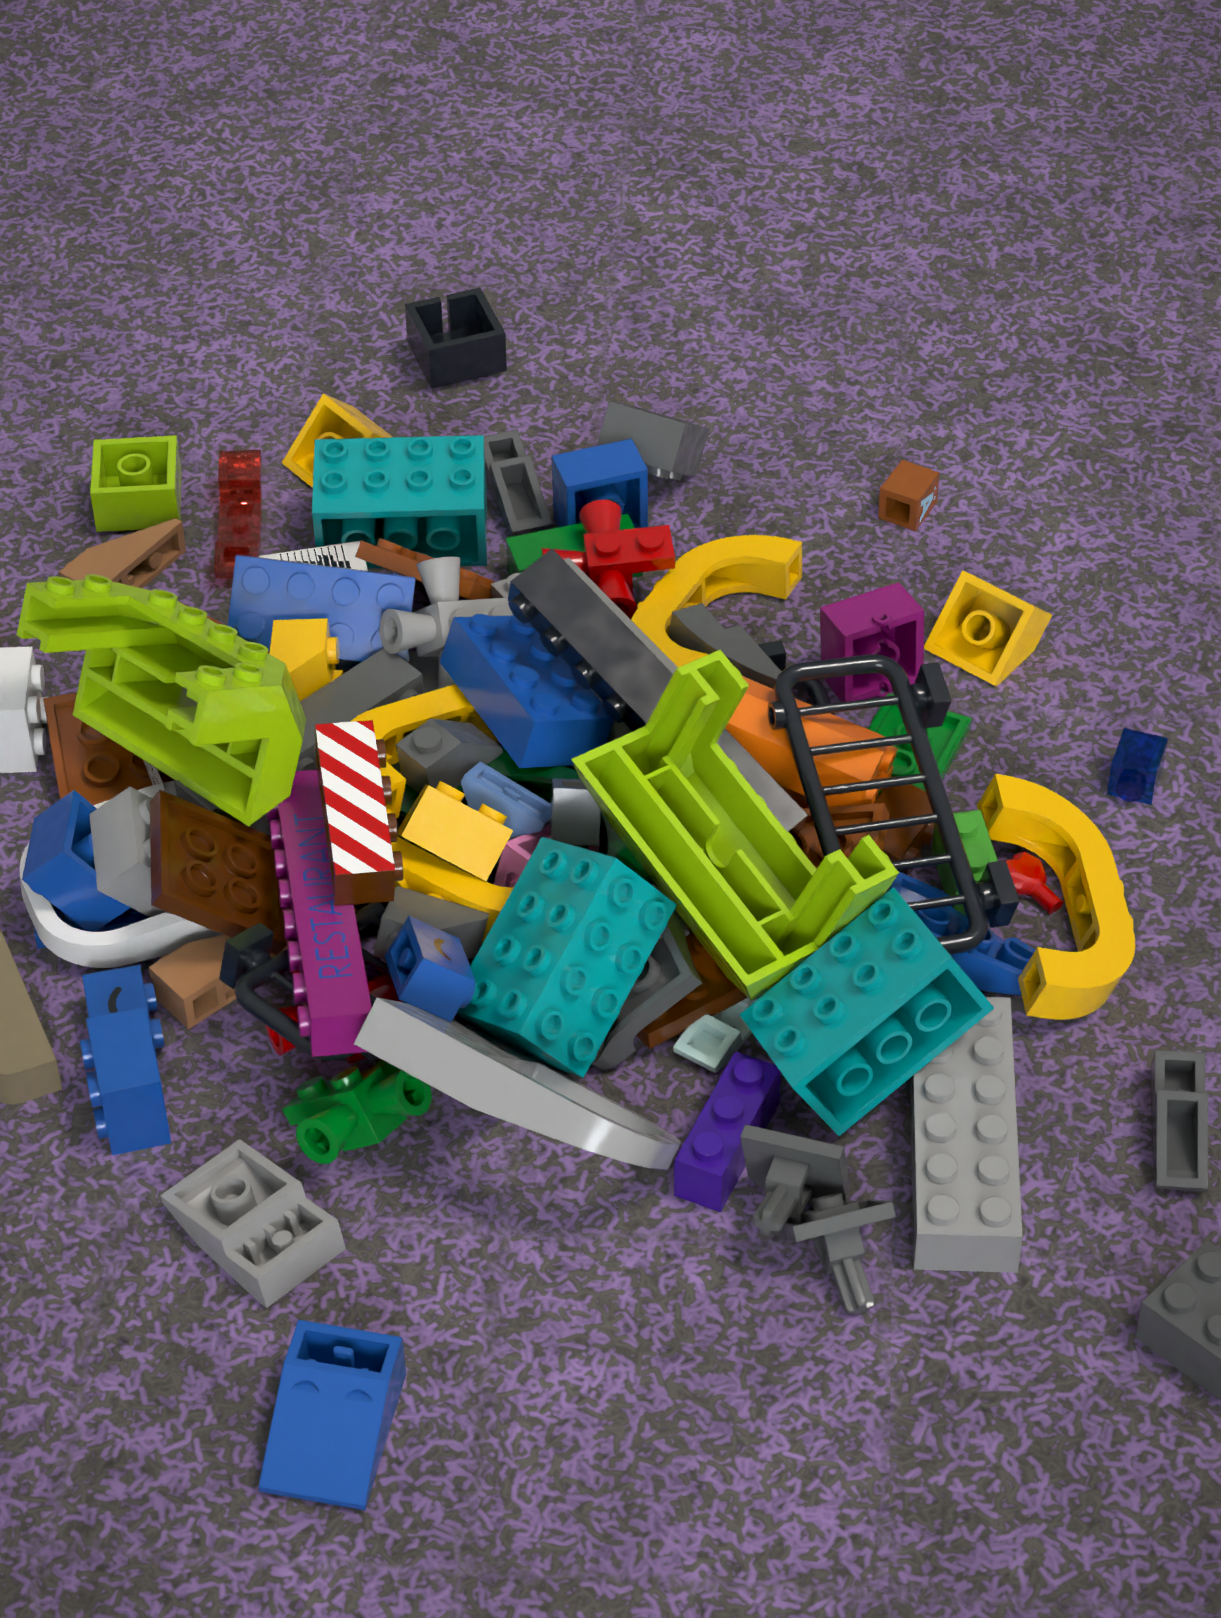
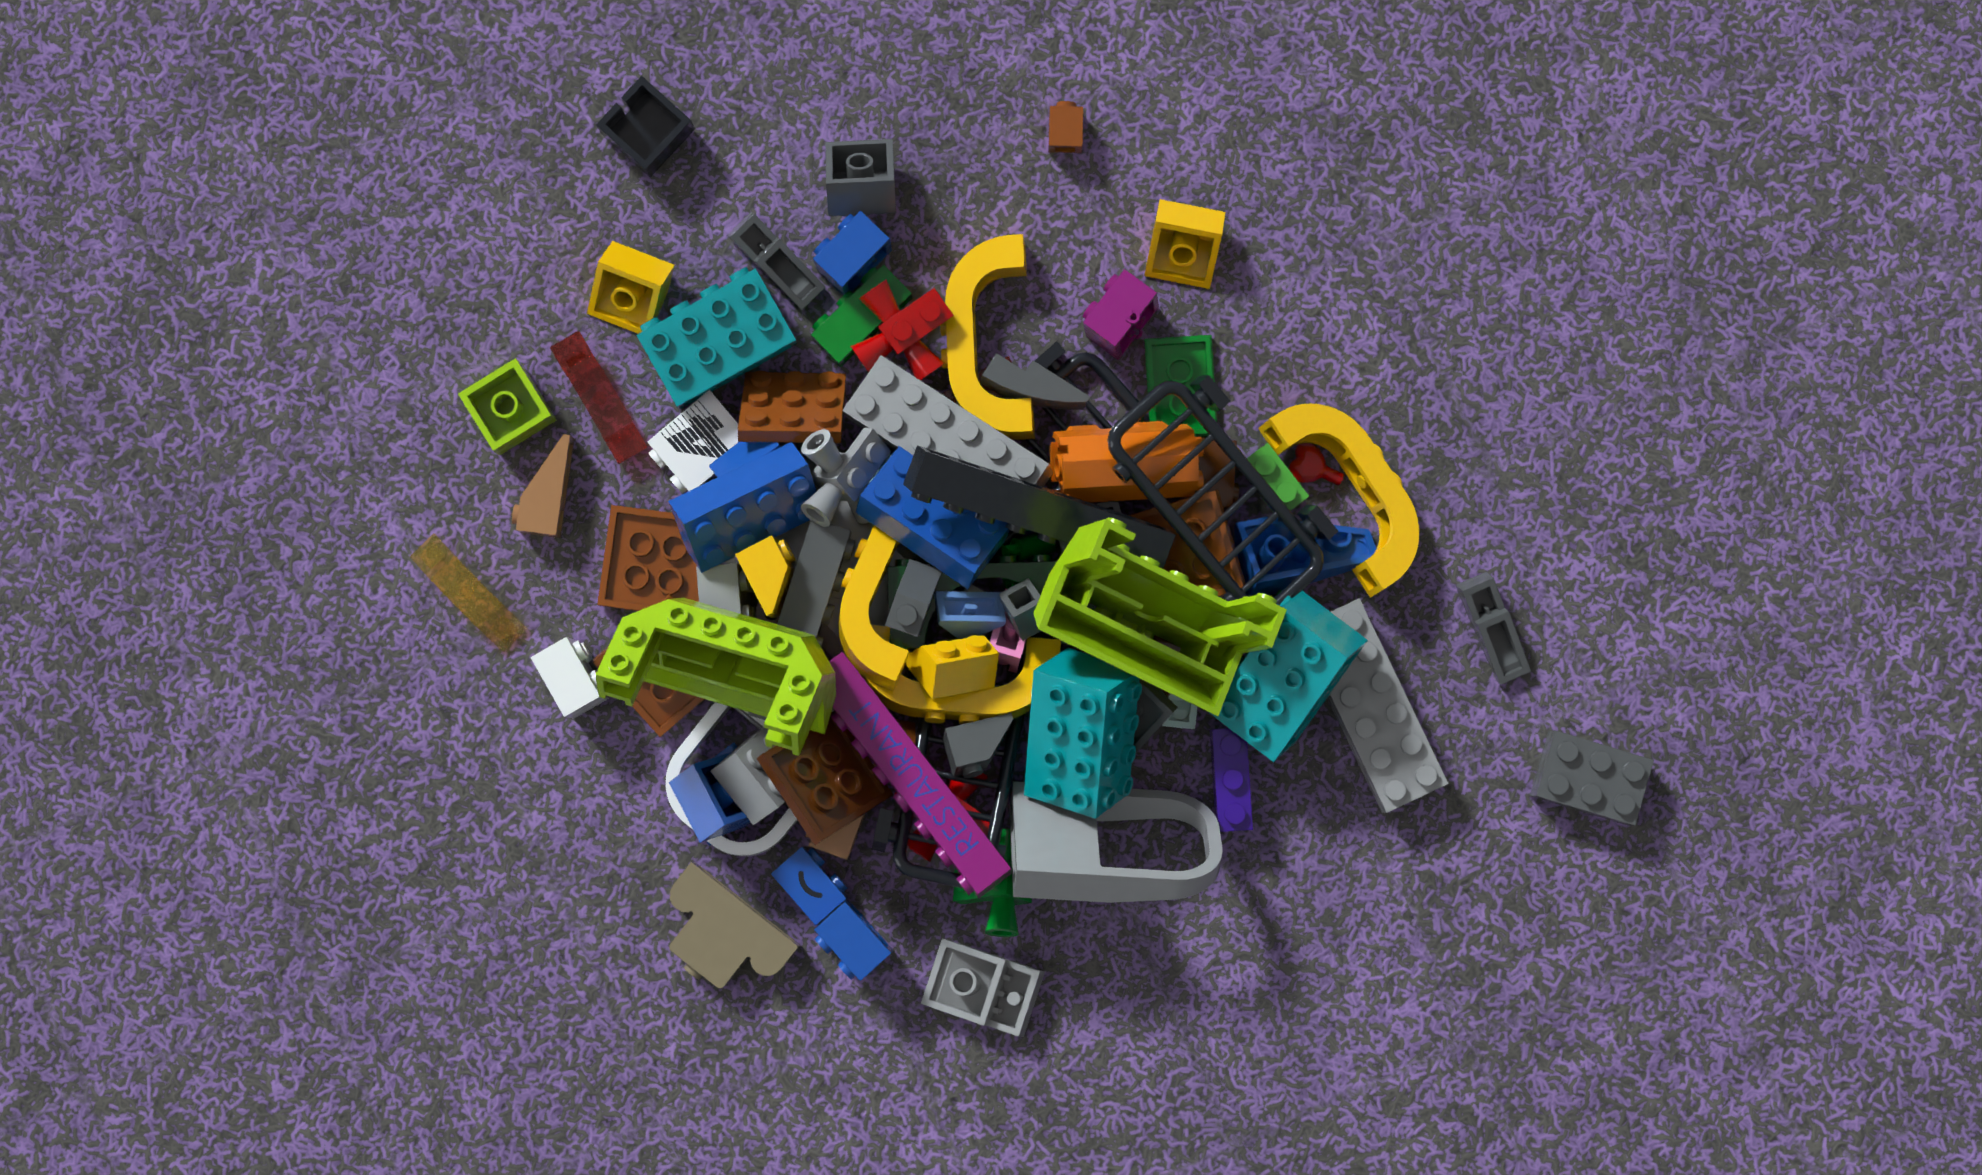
camera: 25 degrees left, 40 degrees up
(332, 1414) = (1114, 1100): blue slope -> none
(355, 813) = (905, 715): brick -> none
(430, 969) = (1009, 790): blue brick -> none
(791, 1173) = (1292, 801): dark grey piece -> none
(839, 1242) = (1331, 823): dark grey piece -> none
(1137, 766) = (1343, 331): clear blue brick -> none

